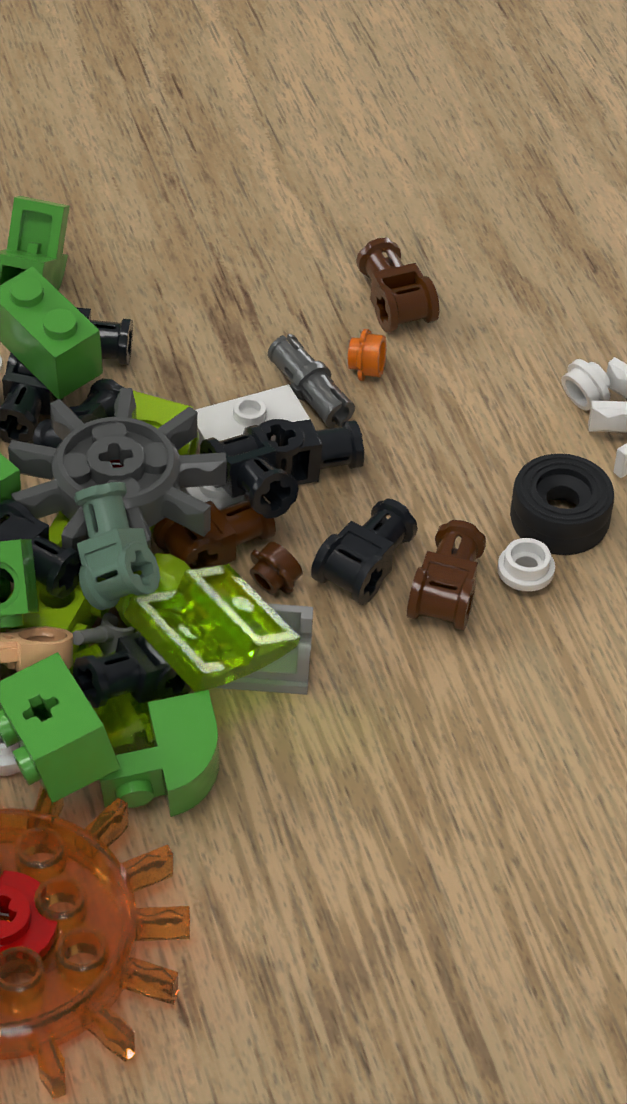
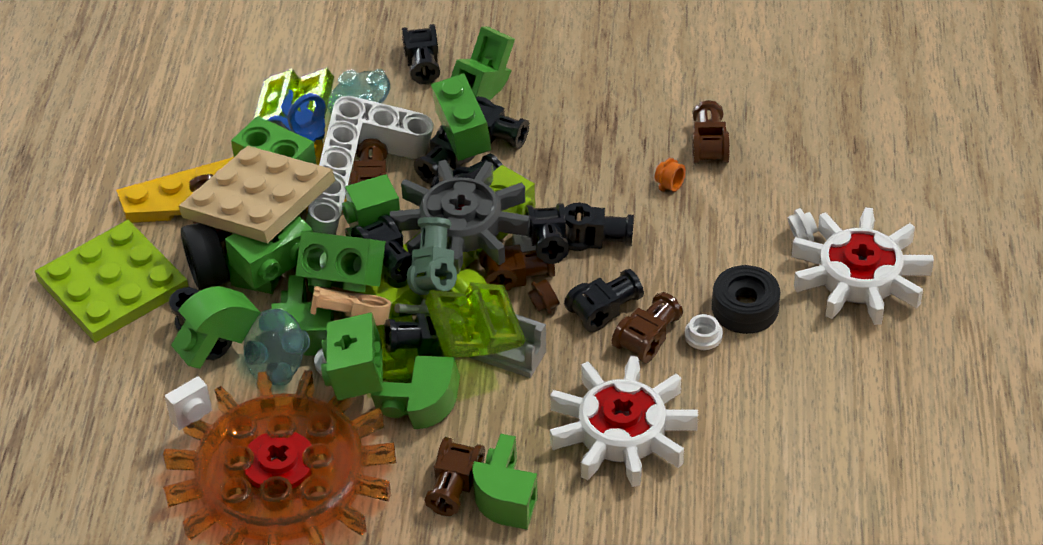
camera: 25 degrees right, 0 degrees up
(233, 416) = (592, 194): white plate -> none
(274, 868) = (452, 475): none -> reddish brown connector
(311, 380) = (624, 183): dark grey pin -> none
(358, 876) = (501, 490): none -> bright green brick
(480, 722) = (622, 420): none -> white gear

